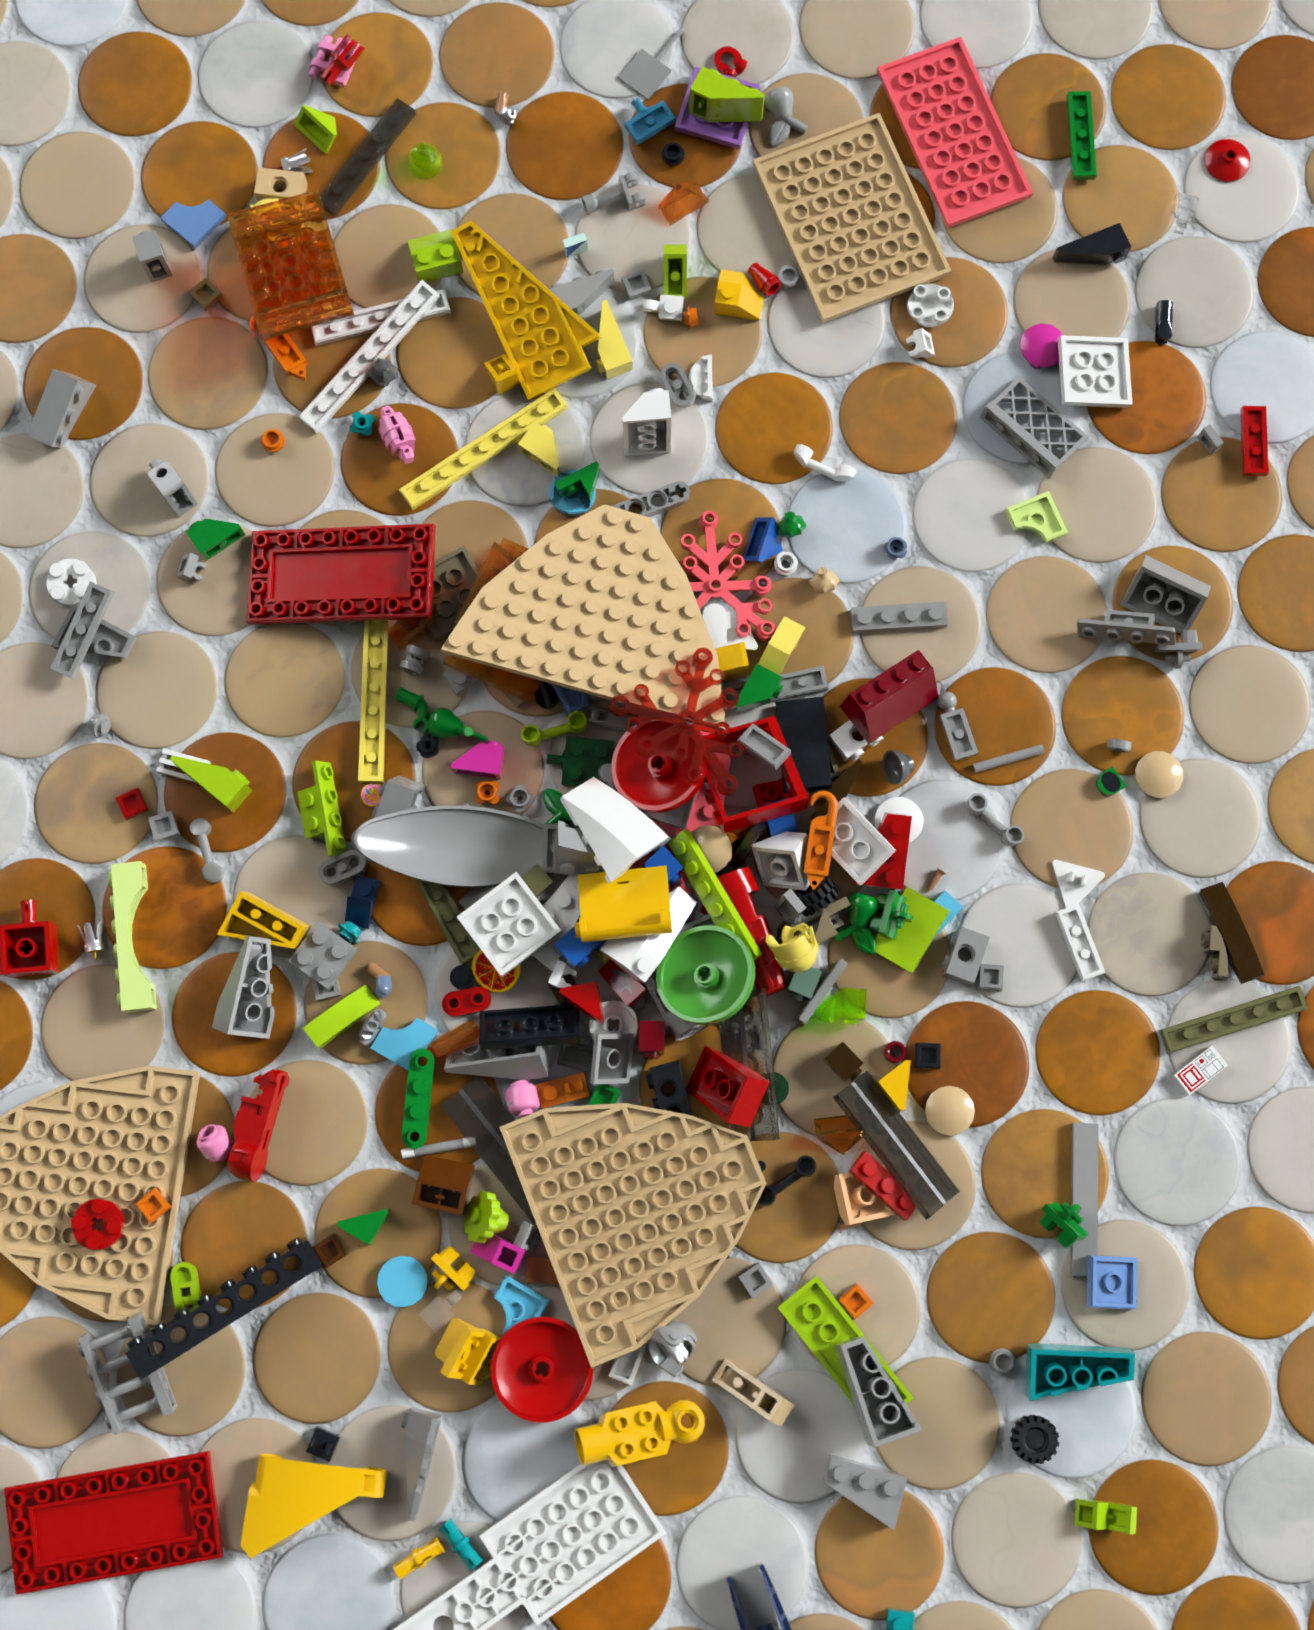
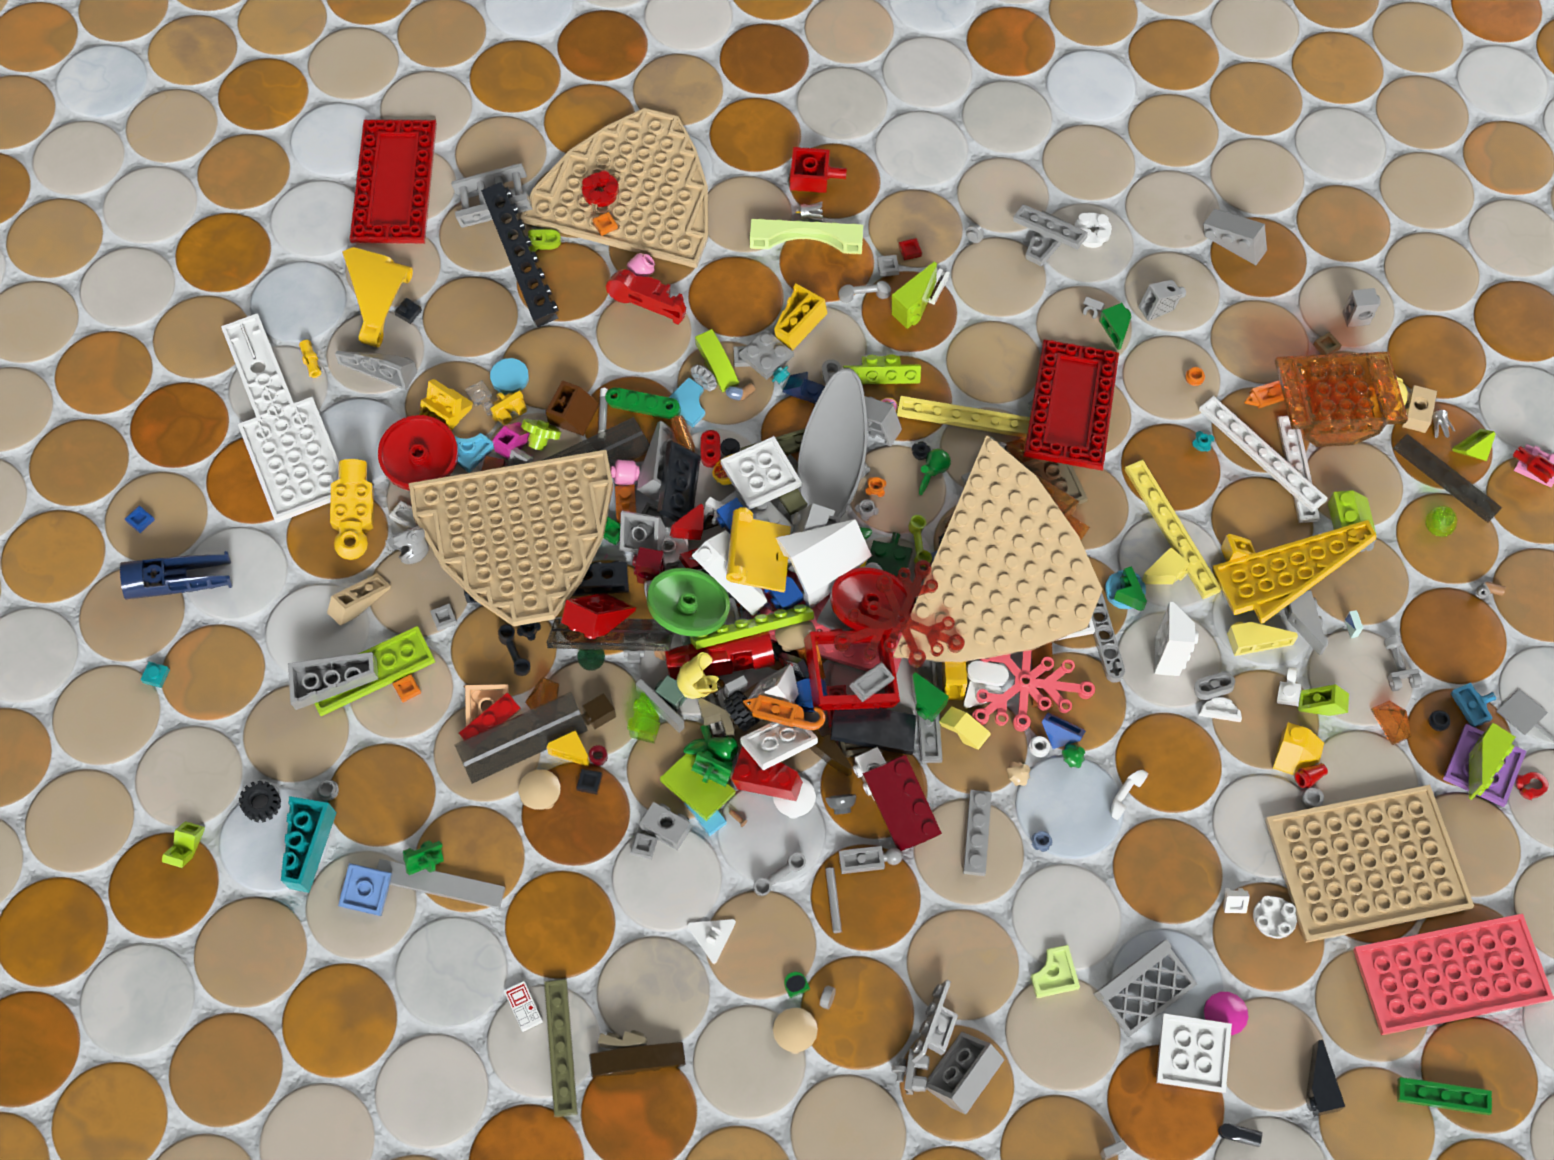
camera: 100 degrees right, 15 degrees down
(194, 222) = (1394, 341): medium blue tile -> none
(246, 998) = (746, 299): light grey wedge -> none
(330, 1250) = (544, 333): reddish brown tile -> none
(365, 1226) = (554, 355): green slope -> none
(382, 372) = (1247, 461): dark grey piece -> none
(397, 434) = (1189, 462): bright pink piece -> none
(418, 704) = (956, 447): green piece -> none
(460, 1544) = (310, 385): teal pin -> none
(481, 761) = (902, 485): dark pink slope -> none
(636, 284) = (1313, 670): light grey tile -> none
(691, 317) = (1278, 708): orange plate -> none
(780, 104) = (1484, 819): light grey piece -> none
(867, 1486) = (262, 665): light grey wedge -> none
(1079, 942) = (657, 926): white tile -> none

